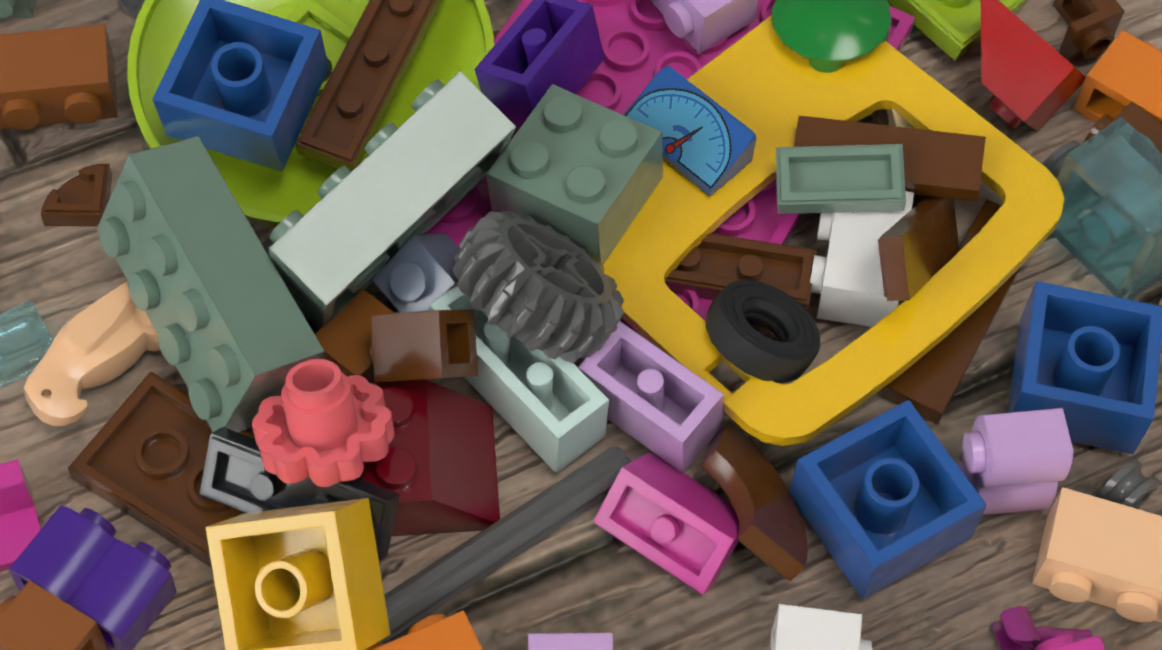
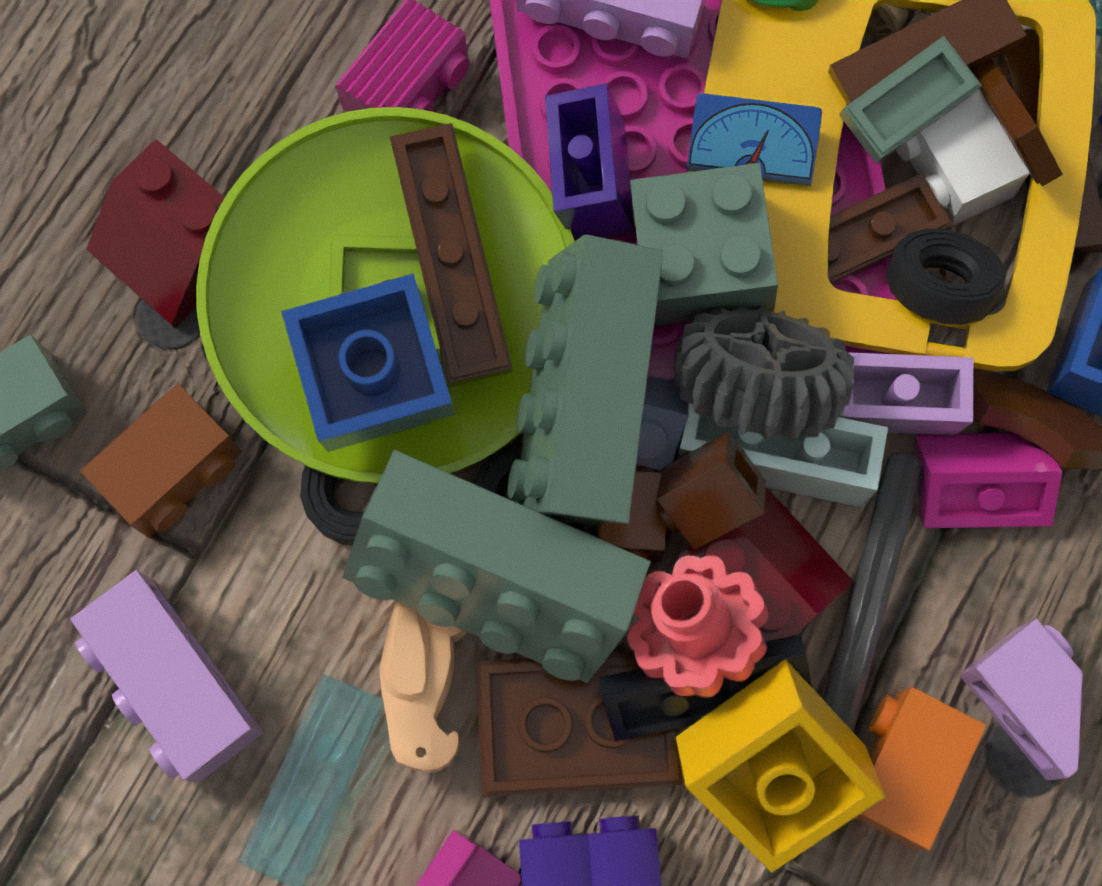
camera: 30 degrees left, 15 degrees up
(80, 199) = (280, 550): reddish brown tile -> none

